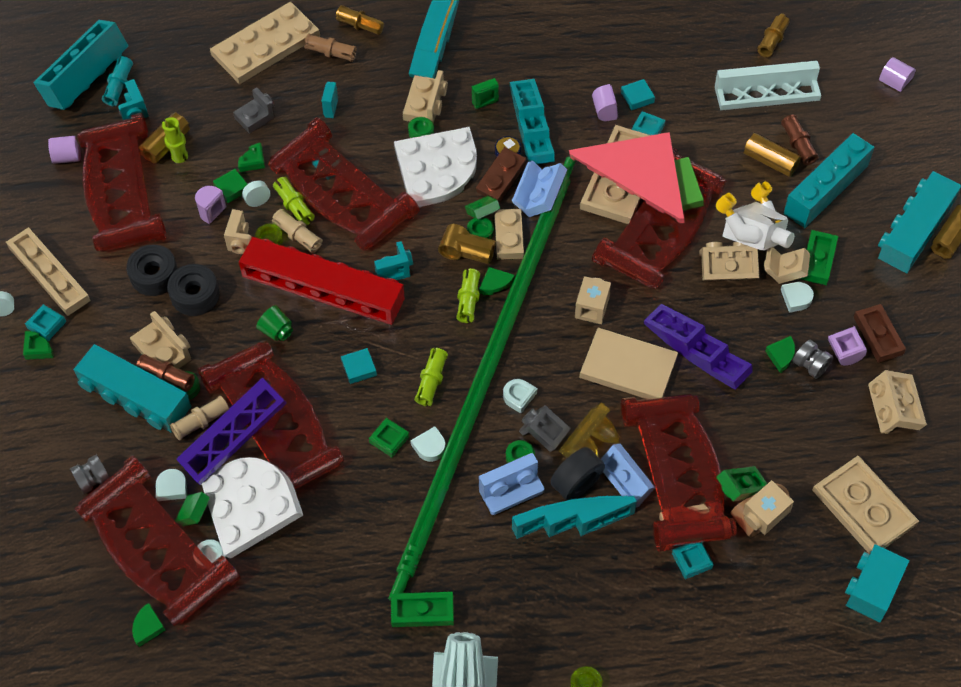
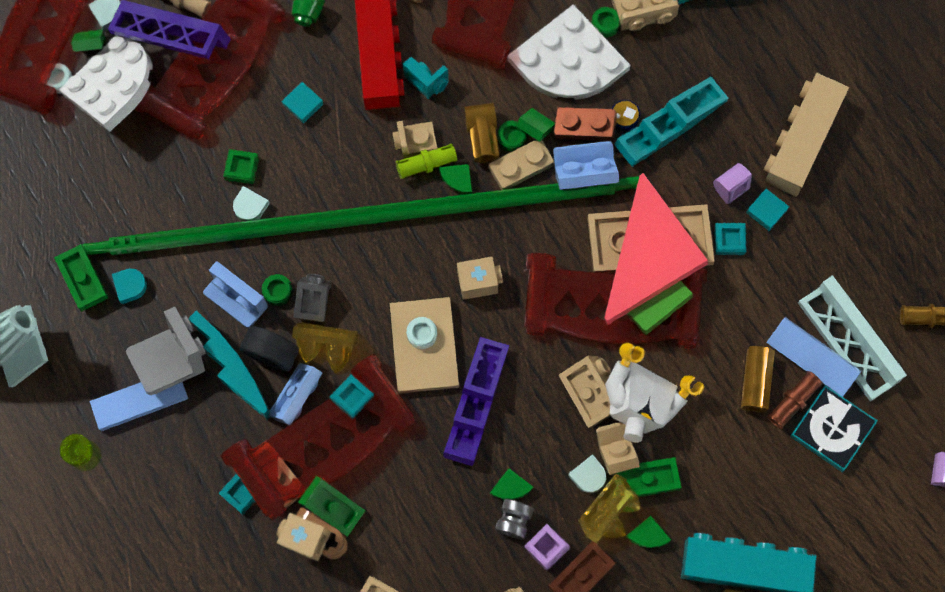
camera: 65 degrees right, 15 degrees up
(431, 377) = (319, 171): lime pin -> none
(443, 296) = (414, 138): none -> tan bracket
(450, 573) = (129, 285): none -> teal tile
(485, 93) = (679, 59): green tile -> none
(518, 394) = (341, 258): light aqua tile -> none
(539, 558) = (168, 355): none -> light grey bracket
(565, 609) = (133, 403): none -> light blue tile
(593, 44) = (806, 135): none -> tan brick
(620, 357) = (421, 332): none -> light aqua tile
(654, 427) = (351, 396): none -> teal tile
(770, 113) = (814, 356): none -> light blue tile
(828, 180) = (752, 450): teal brick -> none
(831, 126) = (833, 428): none -> tile
(835, 288) = (602, 515): none -> clear yellow tile
(863, 276) = (648, 535): none -> green tile

